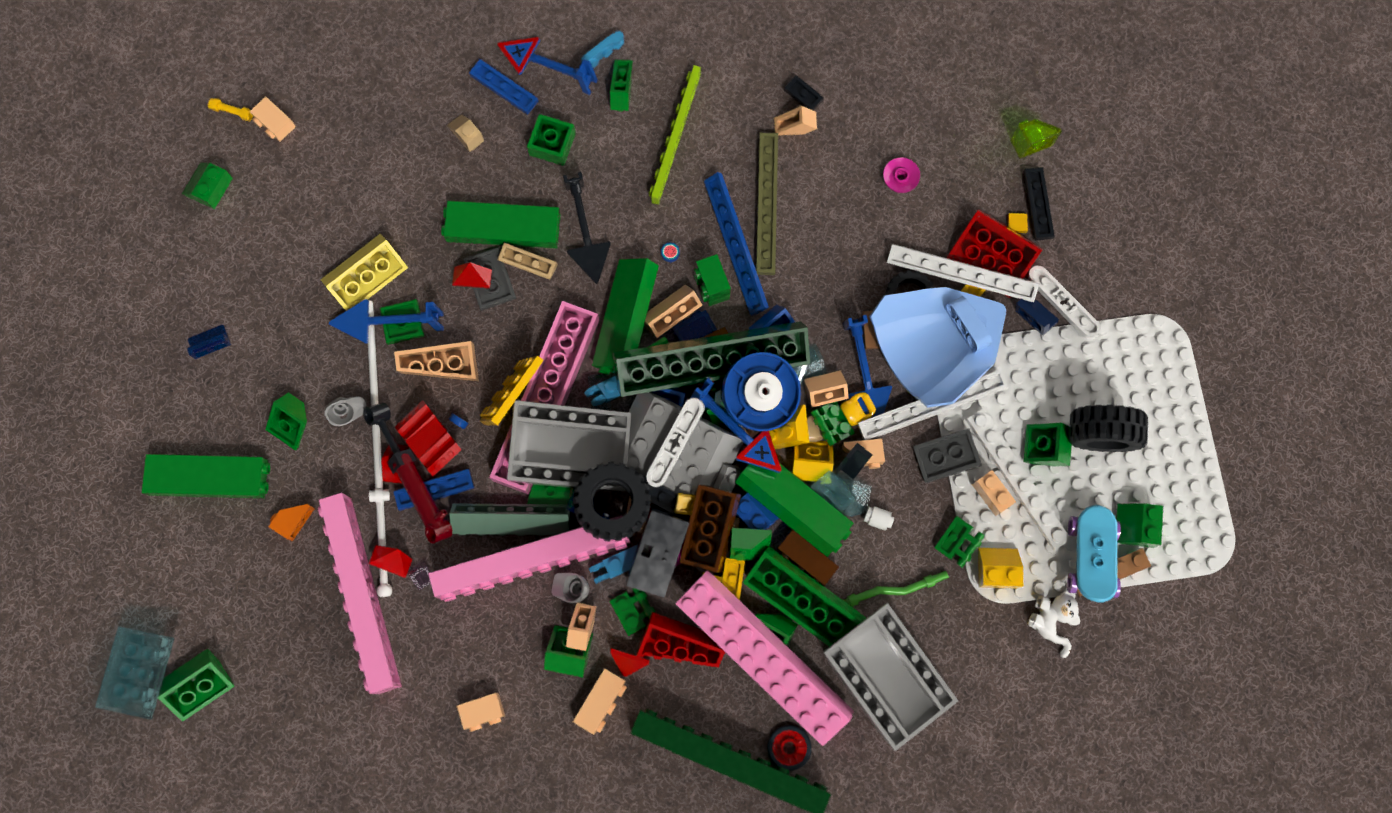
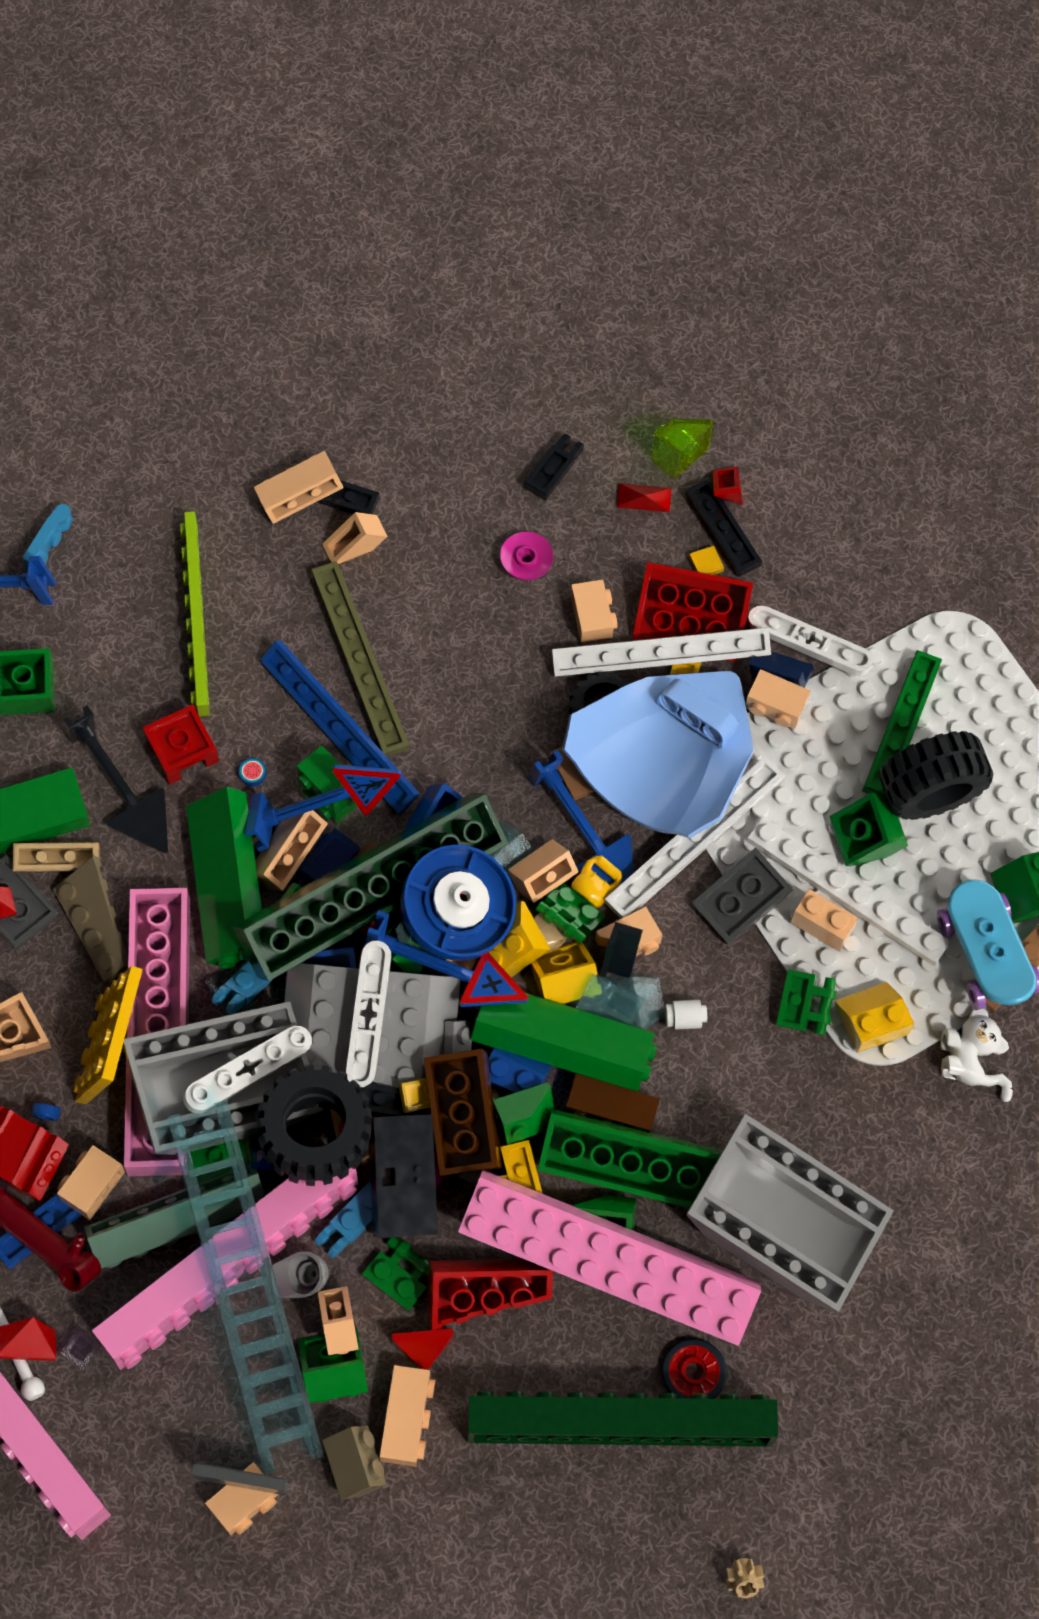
camera: 25 degrees left, 10 degrees down
(466, 477) = (90, 1181): none -> light nougat brick
(482, 701) = (240, 1478): none -> dark grey tile
(515, 583) = (267, 1278): none -> clear light blue ladder
(534, 309) = (89, 910): none -> dark tan wing
(556, 718) = (354, 1462): none -> dark tan brick
(568, 451) = (223, 1081): none -> white piece
(621, 85) = (93, 575): green slope -> none
(632, 216) = (180, 742): none -> red panel
(732, 292) = (361, 784): none -> blue piece
(773, 74) = (298, 487): none -> light nougat brick
(928, 581) = (786, 1074): bright green bar -> none
(929, 228) = (592, 611): none -> light nougat brick
(943, 121) = (552, 468): none -> black hinge
(995, 163) = (644, 497): none -> red slope
(1025, 334) = (777, 699): none -> light nougat brick
(1053, 175) = (727, 484): none -> red slope
(1103, 378) = (904, 716): none -> green tile

